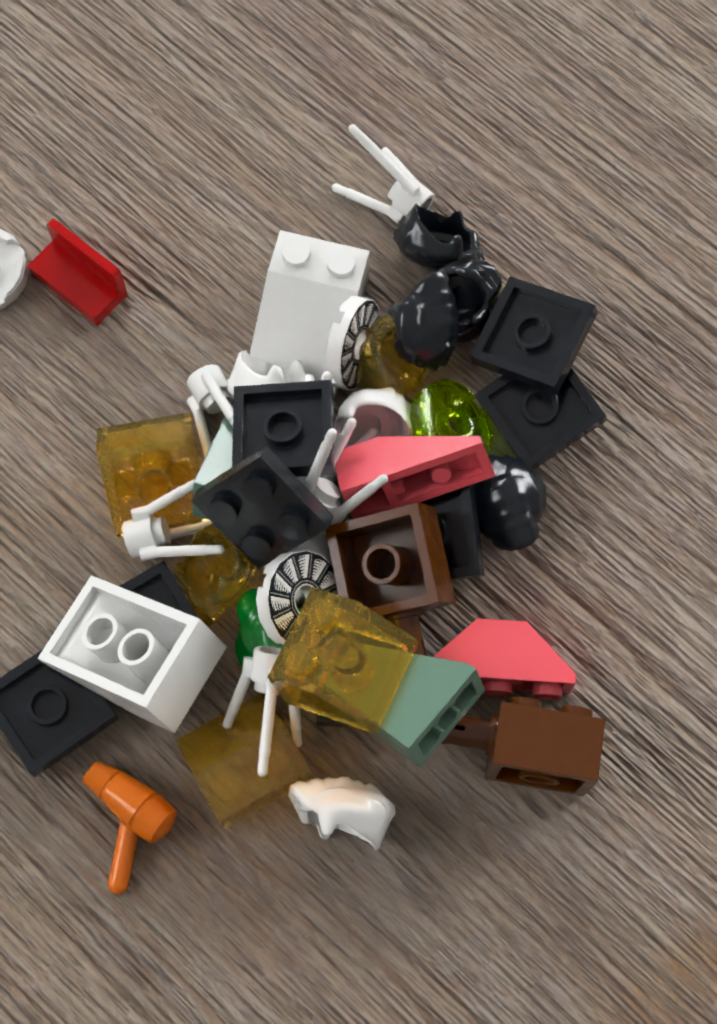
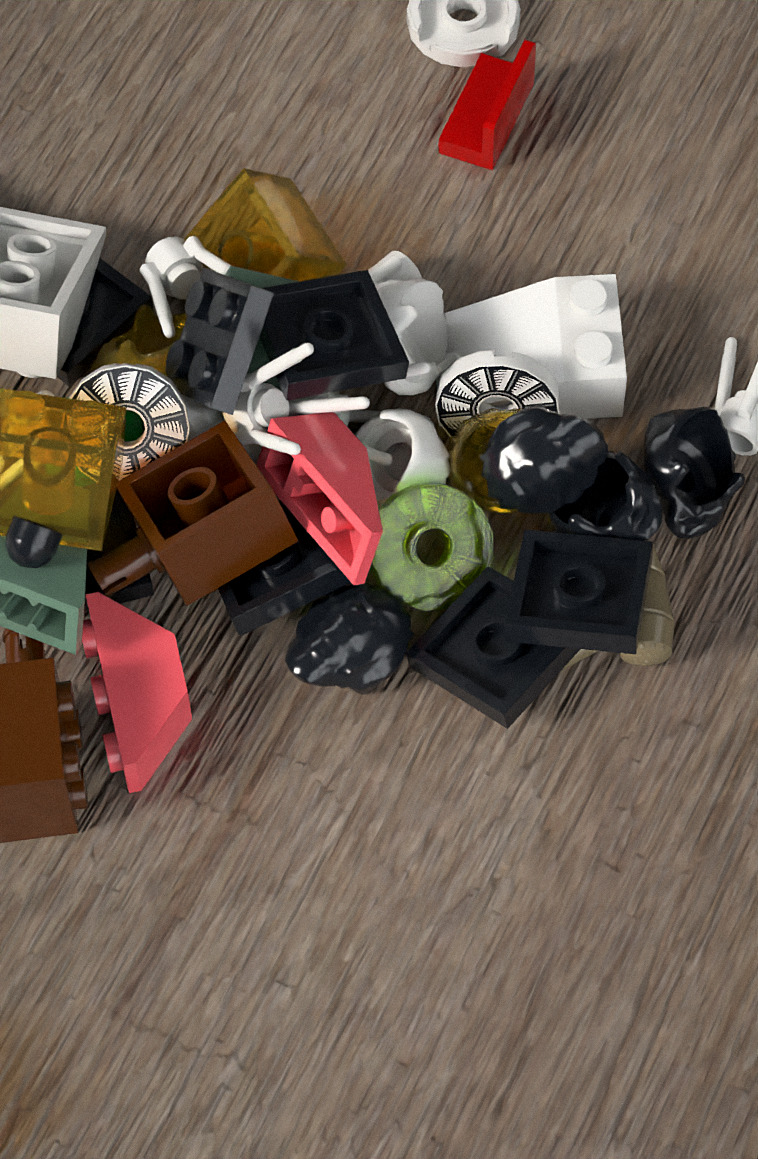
camera: 75 degrees right, 10 degrees down
(411, 686) = (31, 543): none -> black hinge

